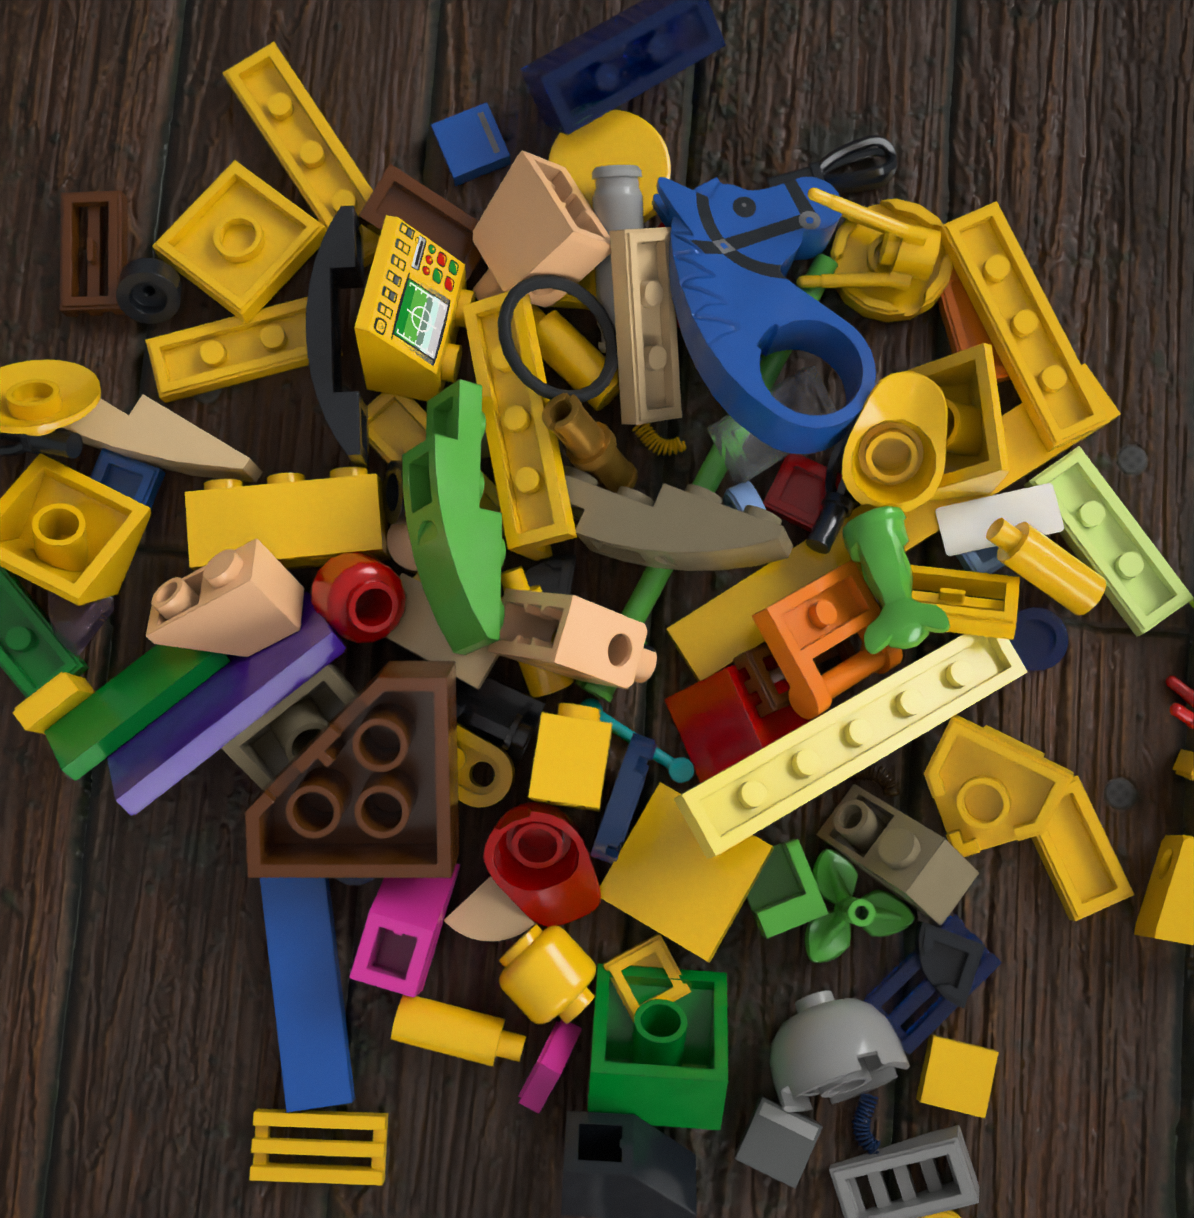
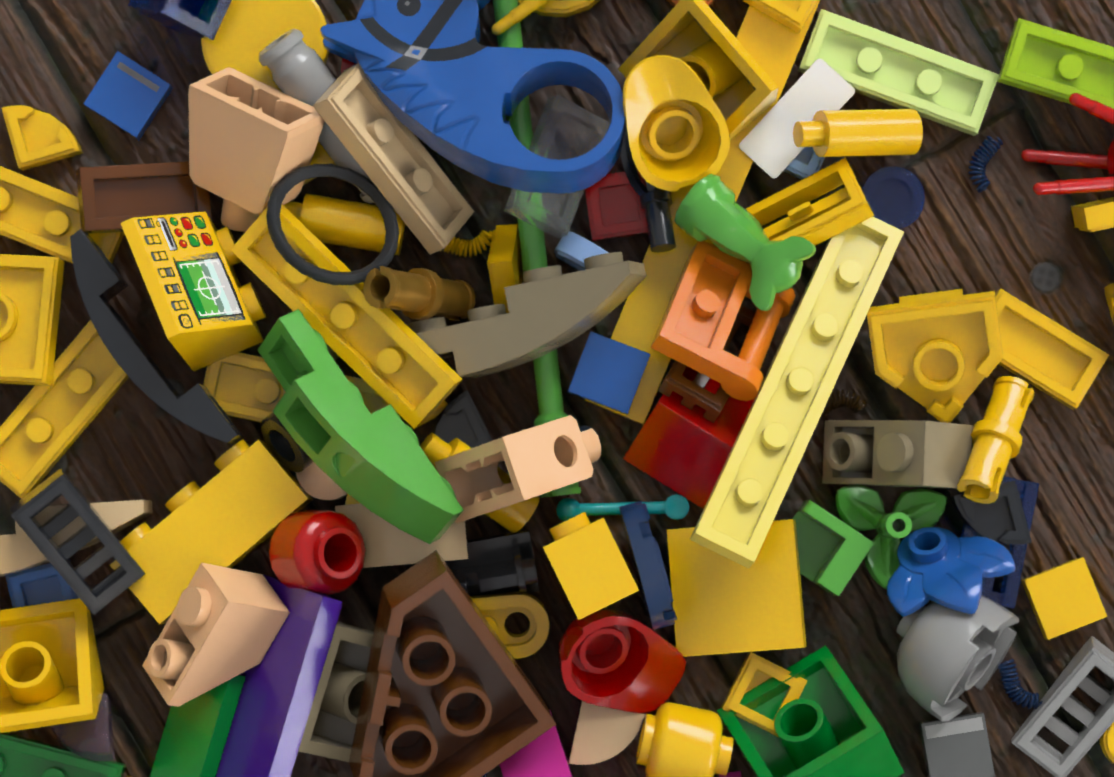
camera: 40 degrees left, 5 degrees up
(144, 428) = (40, 498): none -> black slope
(378, 129) = (38, 137): none -> yellow tile
(679, 468) = (504, 261): none -> yellow tile
(701, 618) = (608, 373): none -> blue tile
(873, 980) = (945, 570): none -> blue plate
(990, 899) = (996, 440): none -> yellow pin
(1121, 667) = (981, 160): none -> dark blue leg

